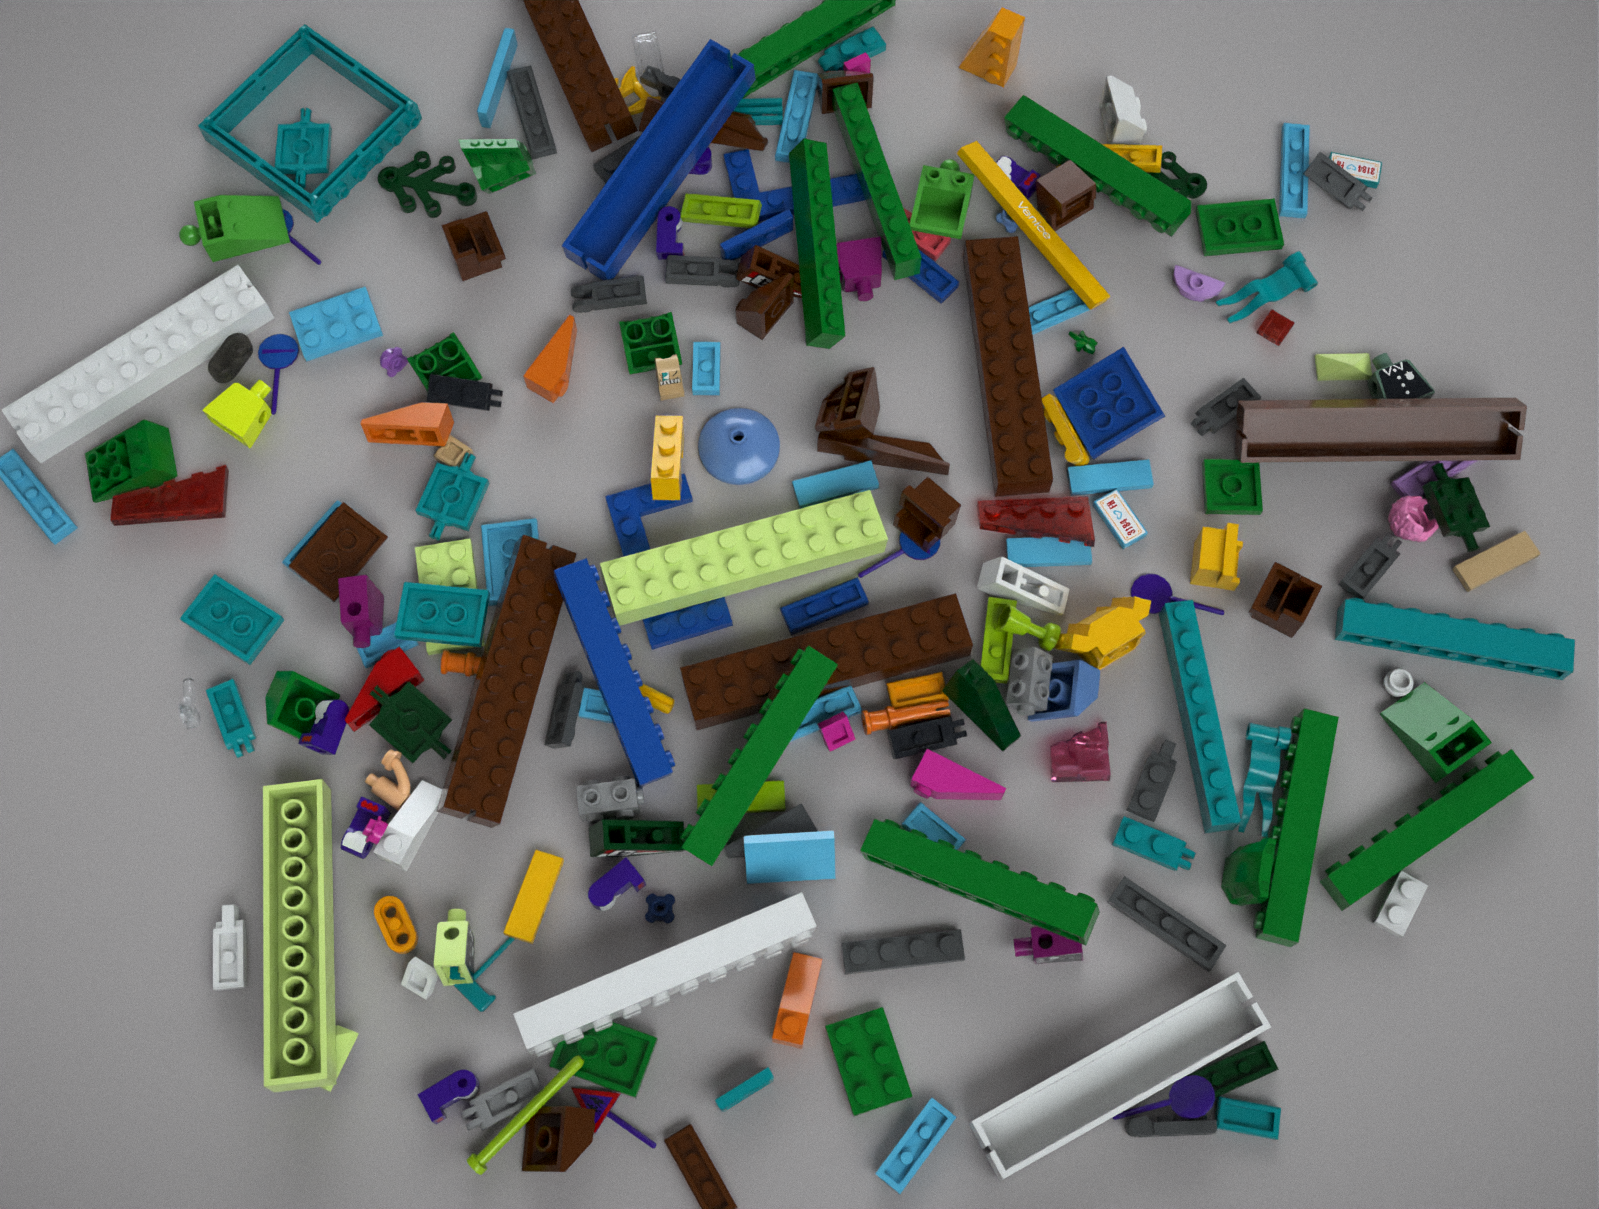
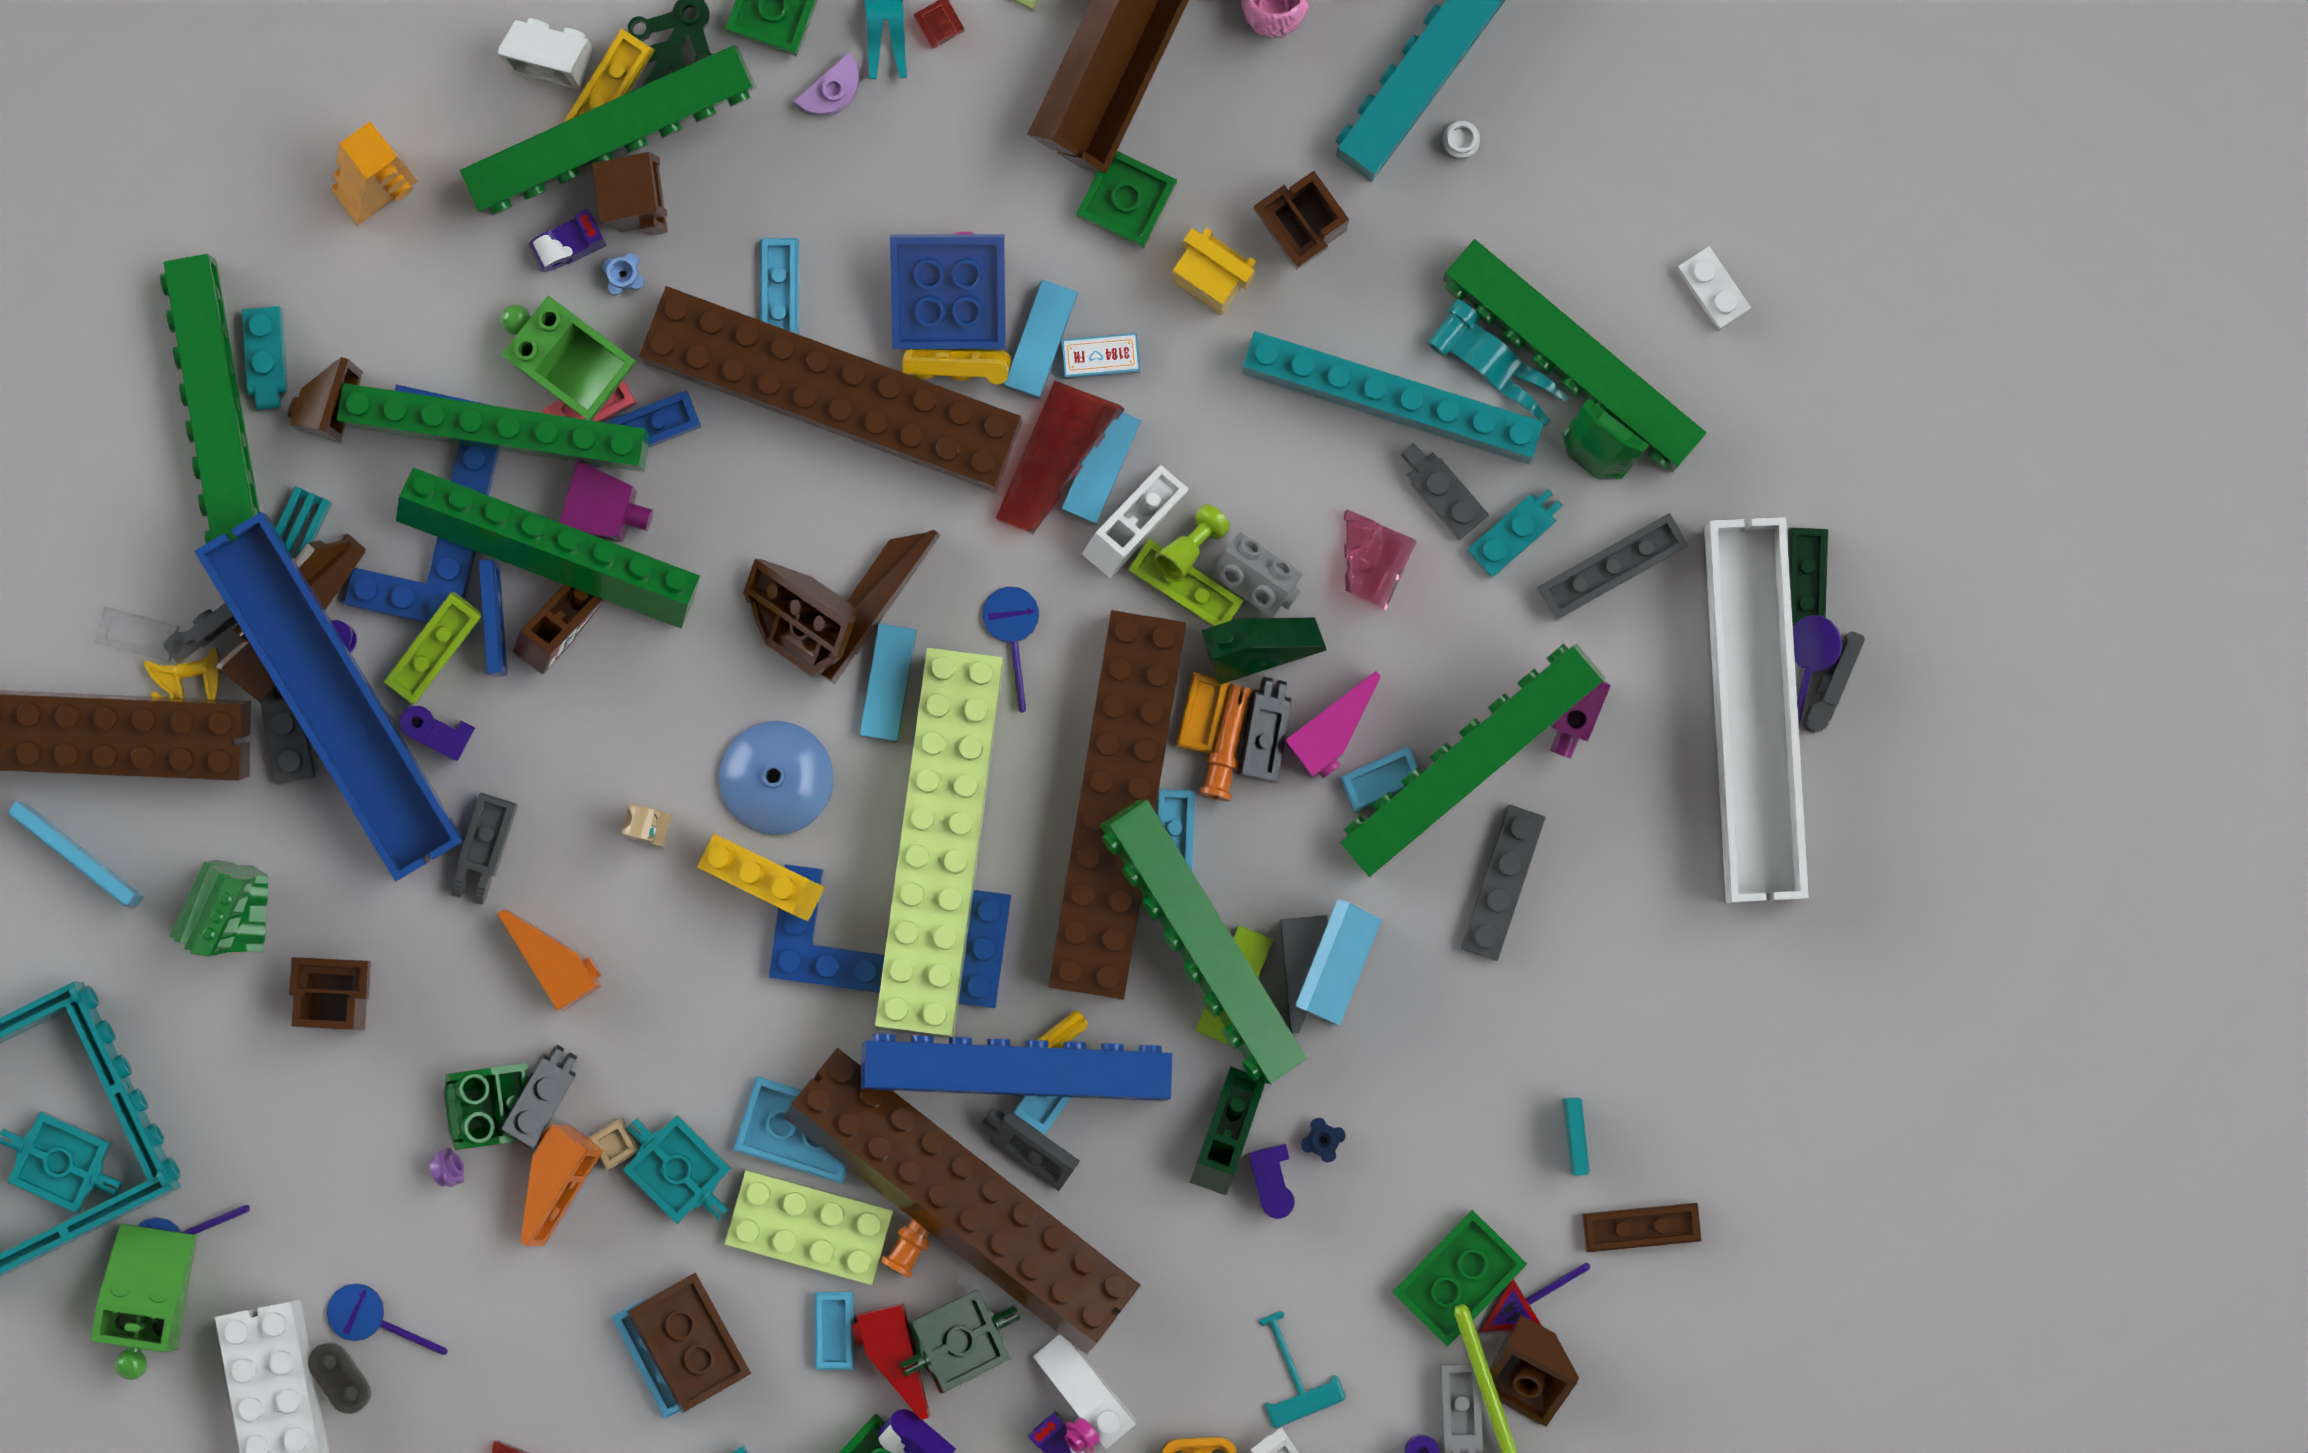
camera: 65 degrees left, 15 degrees up
(241, 411) = (427, 1391): neon yellow torso -> none
(335, 324) = (351, 1221): medium azure plate -> none
(361, 609) = (773, 1342): magenta torso -> none
(387, 790) = (1027, 1403): light nougat plant -> none
(425, 183) = (194, 1023): dark green plant -> none
(442, 614) = (839, 1246): teal plate -> none
(454, 948) = (1274, 1402): yellowish green torso -> none
(531, 112) = (148, 830): dark grey tile -> none
(533, 896) = (1239, 1281): yellow tile -> none
(609, 799) = (1169, 1131): light grey brick -> none
(649, 340) = (579, 825): green slope -> none
(664, 974) = (1411, 1167): white piece -> none
(701, 271) = (505, 715): dark grey hinge -> none
(706, 368) = (651, 770): medium azure plate -> none
(765, 306) = (603, 658): reddish brown slope -> none
(797, 113) = (330, 478): medium azure tile -> none
(797, 1000) = (1503, 1030): orange slope -> none
(824, 606) = (1041, 772): blue tile -> none
(836, 731) = (1209, 834): dark pink plate -> none
(860, 64) = (301, 364): dark pink plate -> none
(868, 1061) = (1606, 981): green plate -> none
(915, 1145) = (1723, 974): medium azure plate -> none
(926, 513) = (989, 592): reddish brown plate -> none
(1033, 225) = (652, 255): yellow tile -> none
(1071, 690) = (1294, 533): medium blue slope -> none
(1084, 342) = (845, 275): green plant -> none
(1107, 632) = (1238, 453): yellow slope -> none
(1159, 592) = (1214, 366): dark purple piece -> none
(1223, 408) = (1018, 149): dark grey hinge -> none
(1247, 1118) = (1862, 591): teal tile -> none
(1370, 567) = (1307, 88): dark grey hinge -> none
(1426, 829) = (1646, 210): green brick -> none
(1435, 731) = (1539, 134): green slope -> none

